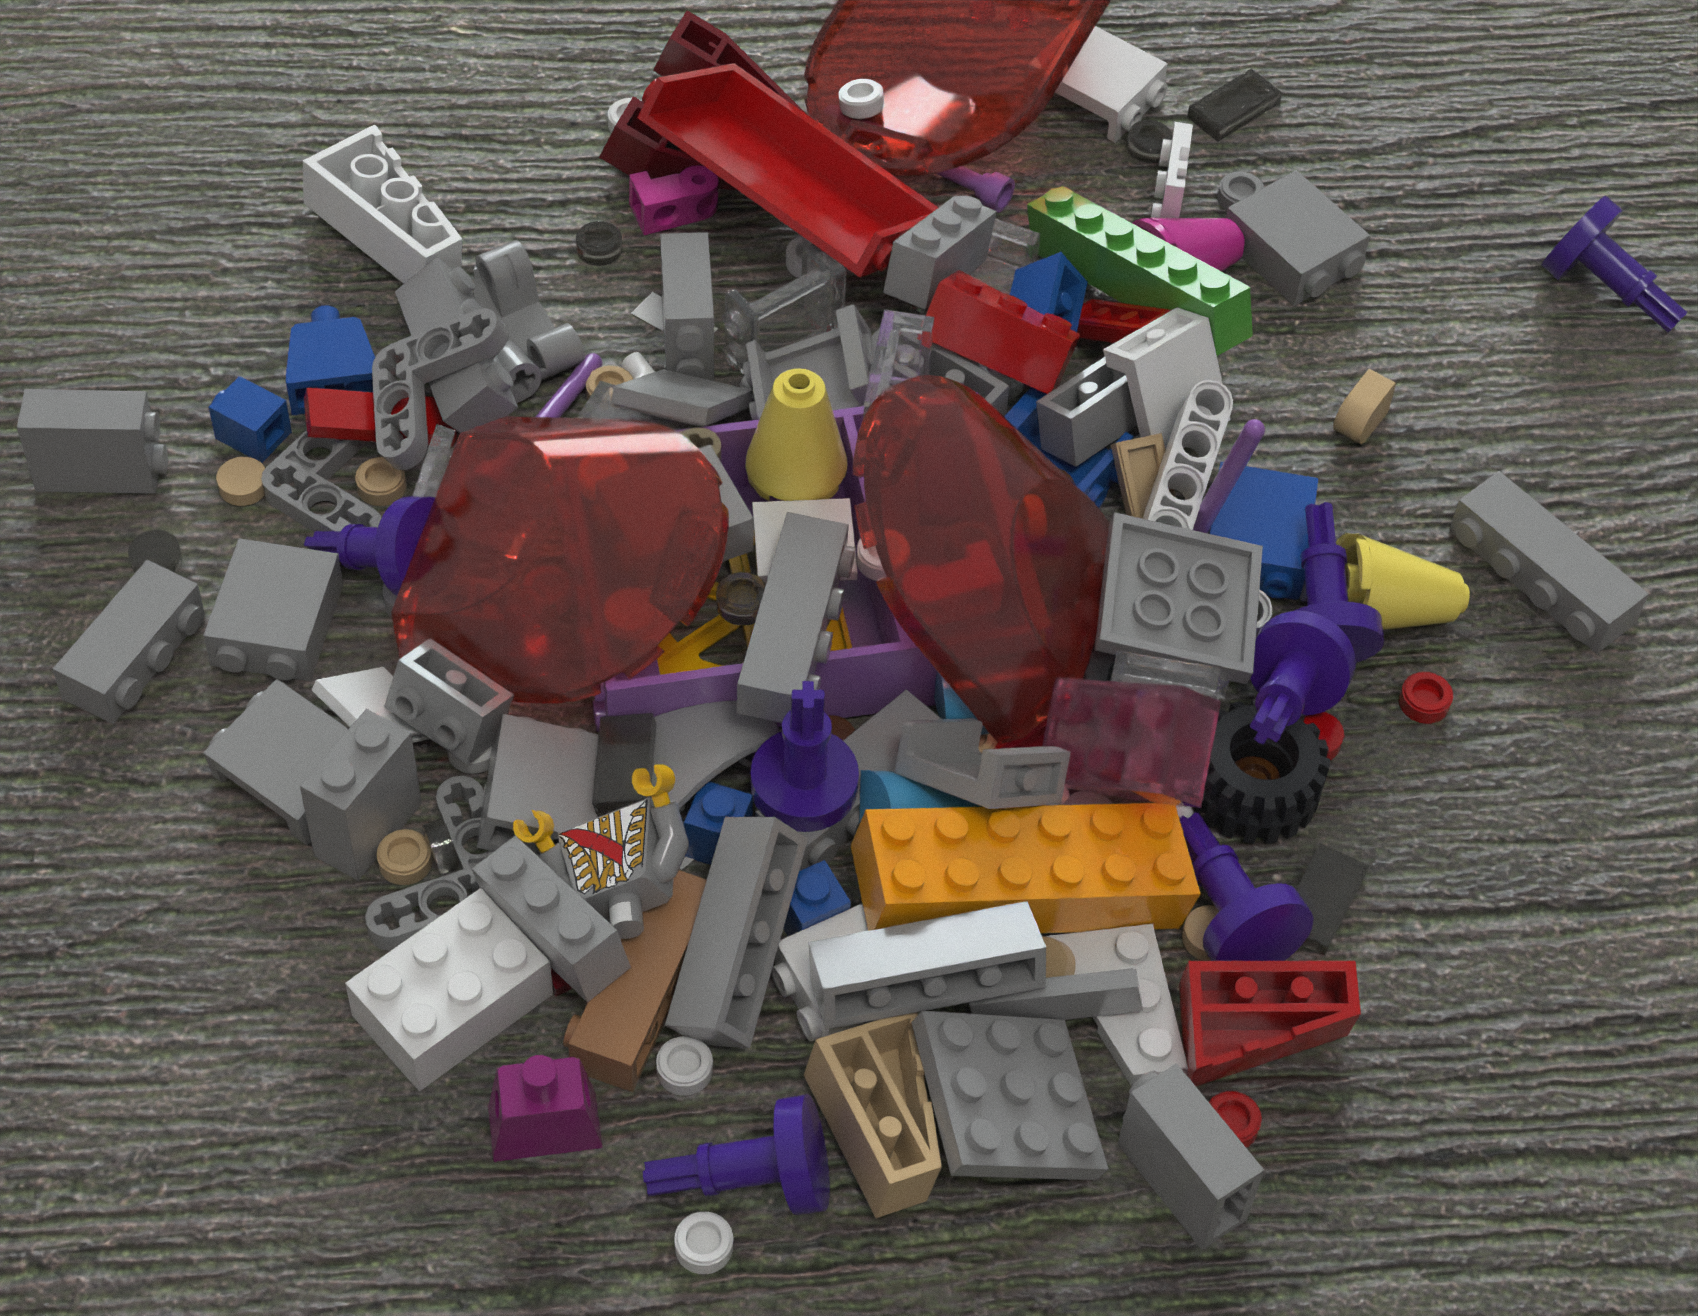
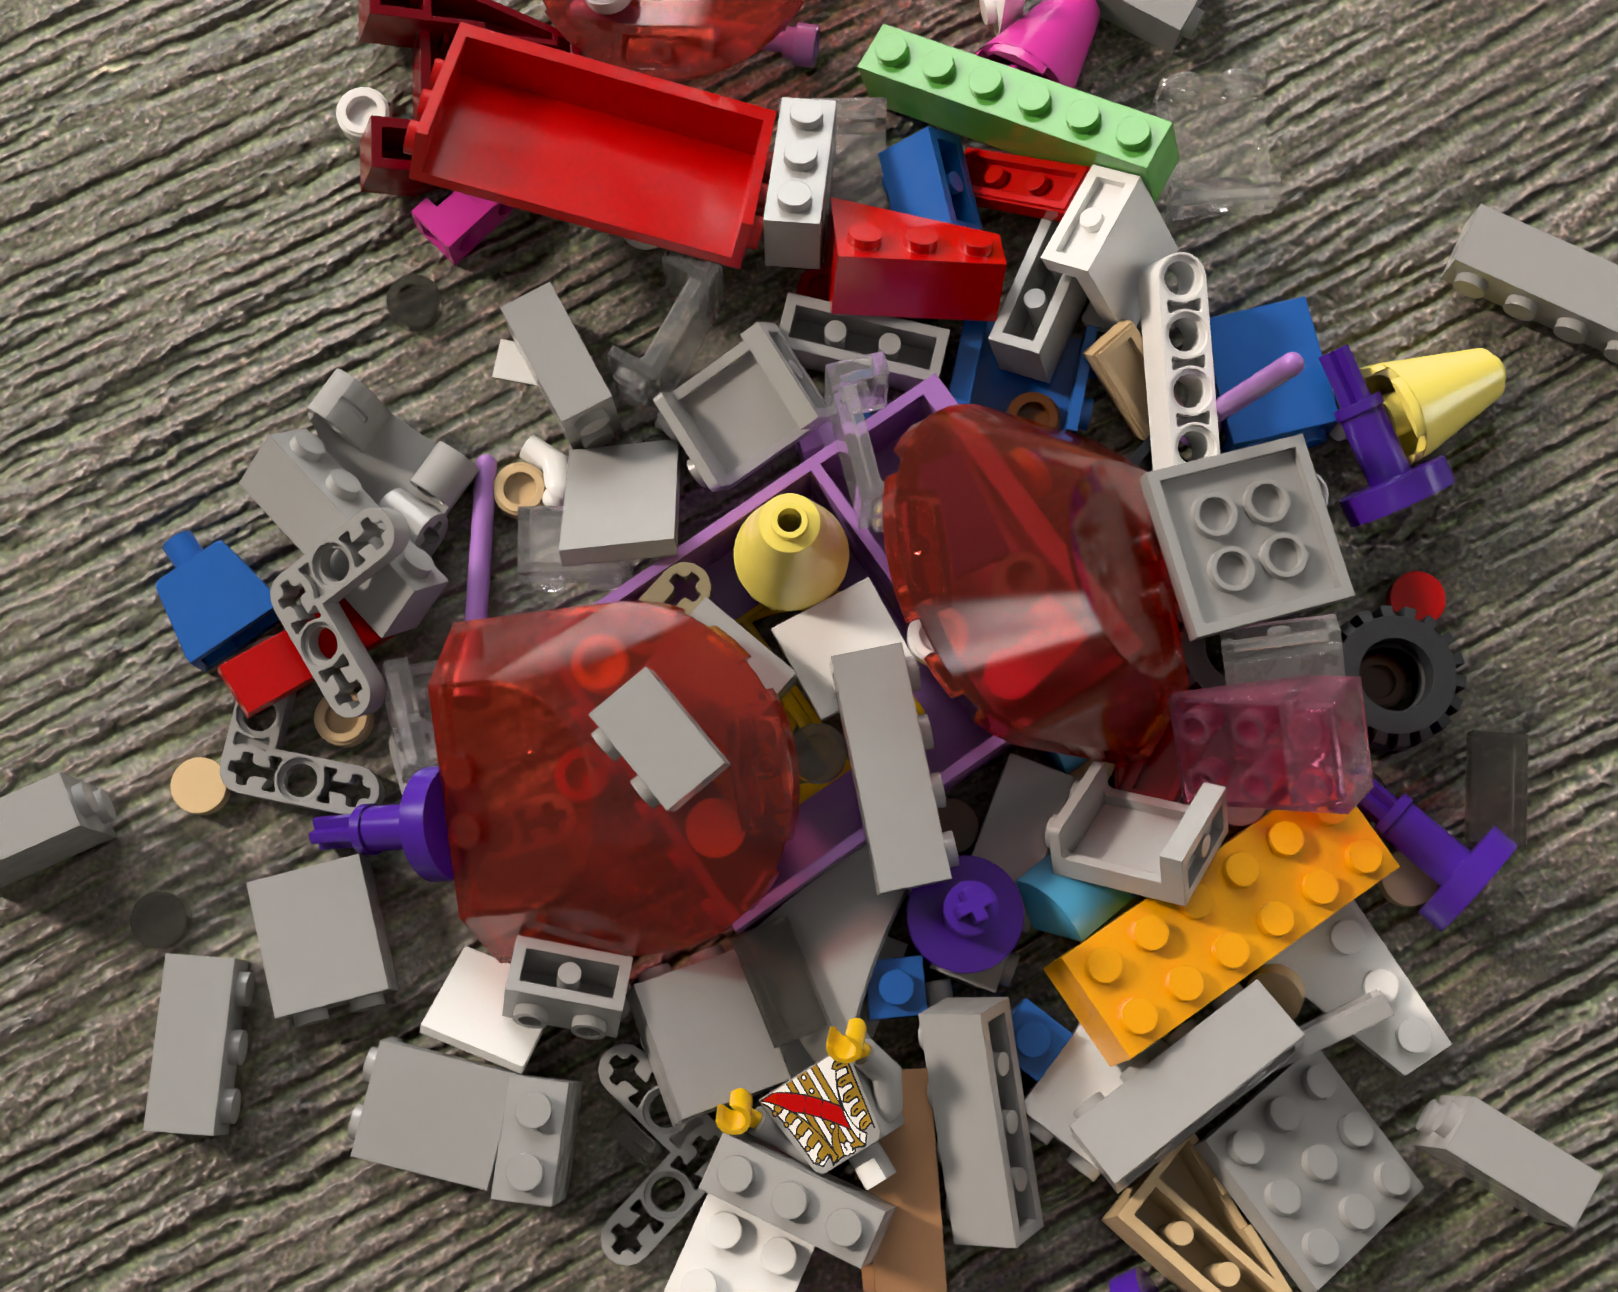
camera: 20 degrees left, 25 degrees up
(250, 419) = (168, 711): blue brick -> none
(378, 206) = (165, 376): white wedge -> none
(404, 857) = (599, 1157): tan tile -> none
(618, 494) = (658, 741): none -> light grey brick
(684, 1065) = (982, 1265): white tile -> none
(1239, 1114) = (1510, 1075): red tile -> none
(1262, 1011) = (1502, 962): red wedge -> none
(1297, 367) = (1219, 145): none -> clear panel
(1298, 669) = (1389, 552): dark purple piece -> none
(1365, 406) = (1306, 169): tan piece -> none
(1425, 697) = (1500, 502): red tile -> none

